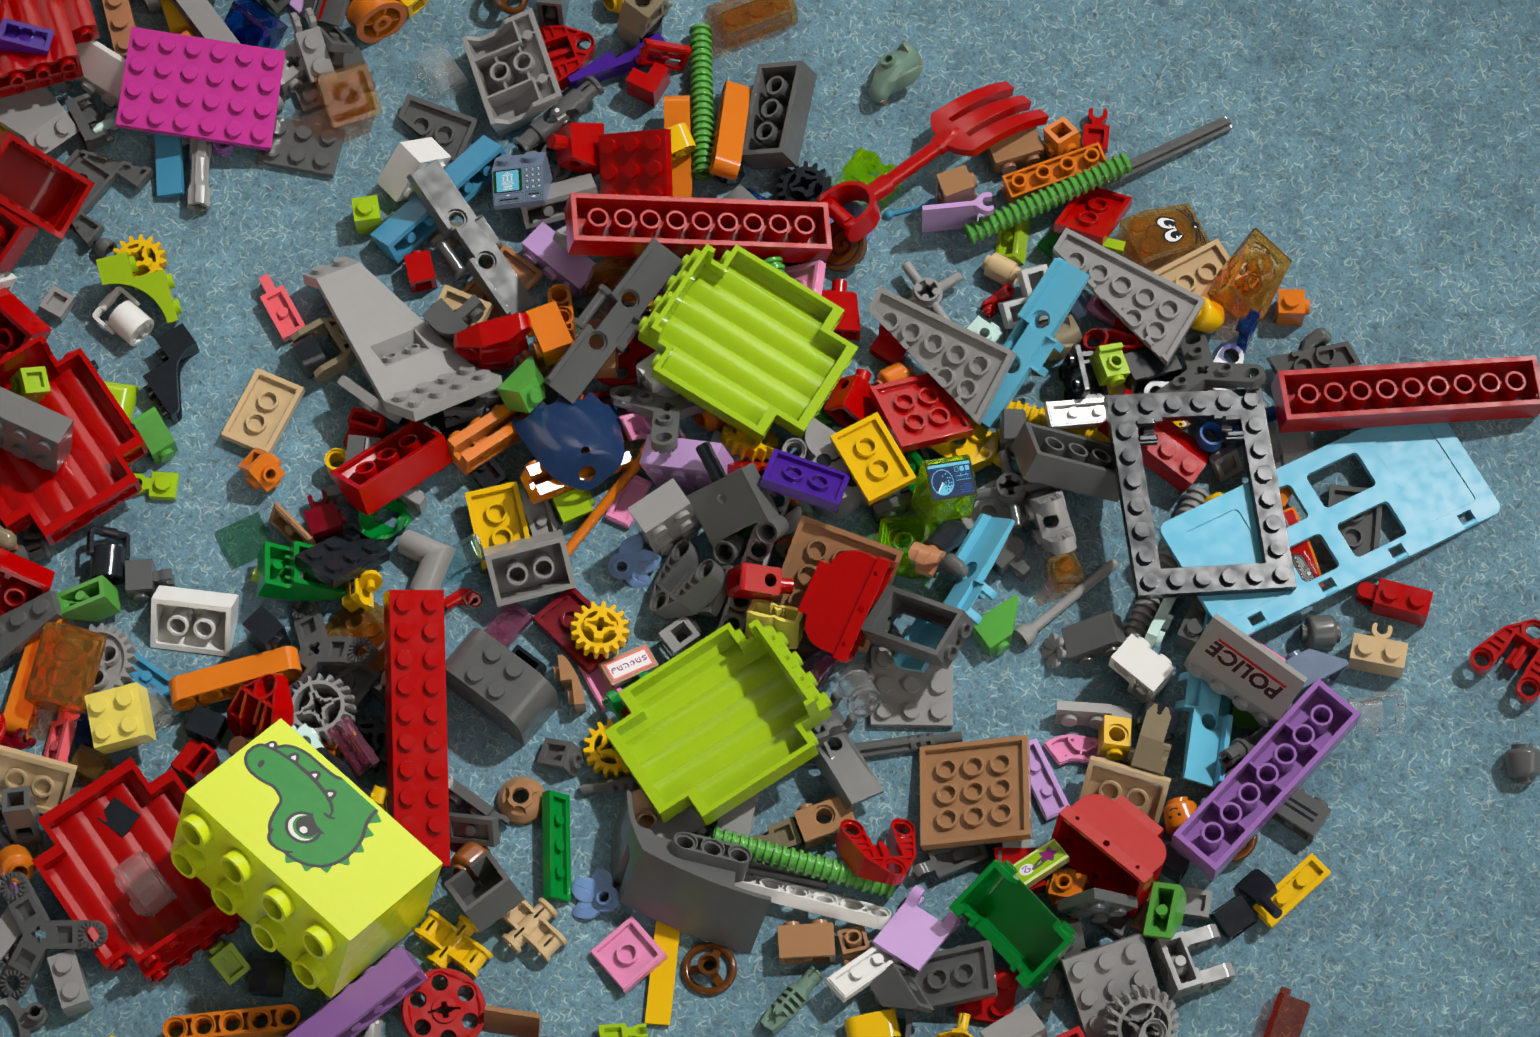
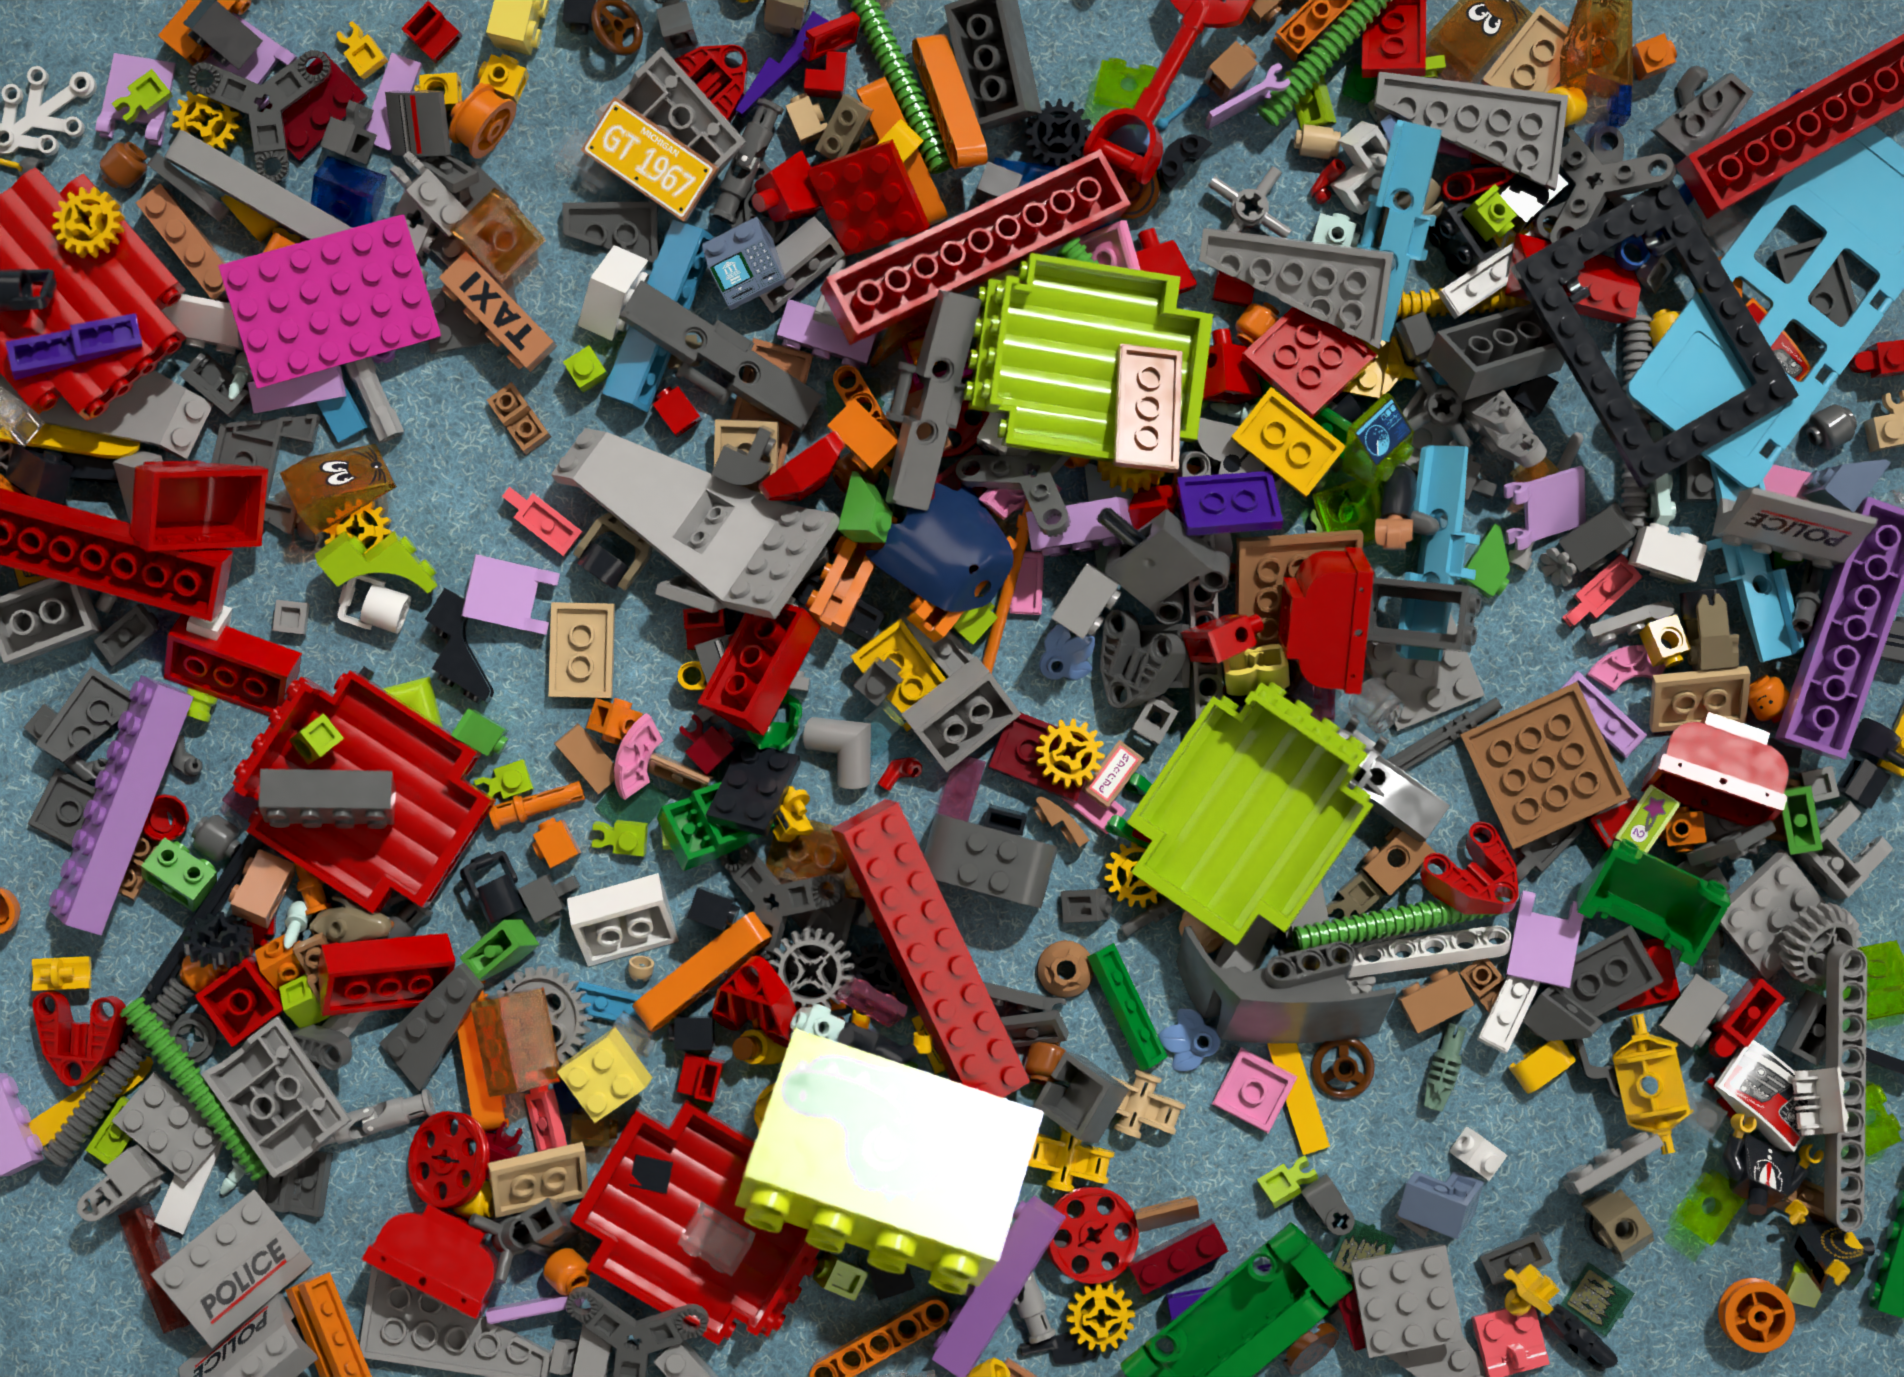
camera: 25 degrees left, 20 degrees up
(137, 219) = (336, 484): none -> clear orange slope
(145, 145) = (298, 391): none -> lavender tile
(159, 508) = (521, 808): none -> orange pin
(171, 542) = (555, 842): none -> orange brick
(189, 662) = (641, 972): none -> tan hinge
(226, 347) = (505, 593): none -> lavender flag
(226, 561) = (625, 836): none -> lime plate
(227, 491) = (587, 758): none -> medium nougat slope
(261, 500) = (634, 756): none -> bright pink tile
(299, 232) = (518, 418): none -> medium nougat slope
(321, 147) = (497, 311): none -> nougat brick
(478, 517) = (878, 680): none -> dark grey bracket
(485, 82) = (650, 159): none -> yellow tile
(618, 107) = (806, 118): none -> tan brick
(643, 116) = (844, 128): none -> dark tan plate
(775, 391) = (1148, 408): none -> tile
(889, 235) = (1182, 150): none -> black cylinder
(1065, 597) = (1550, 505): none -> lavender flag
(1082, 684) = (1603, 590): none -> coral plate
(1090, 514) = (1533, 395): none -> black brick

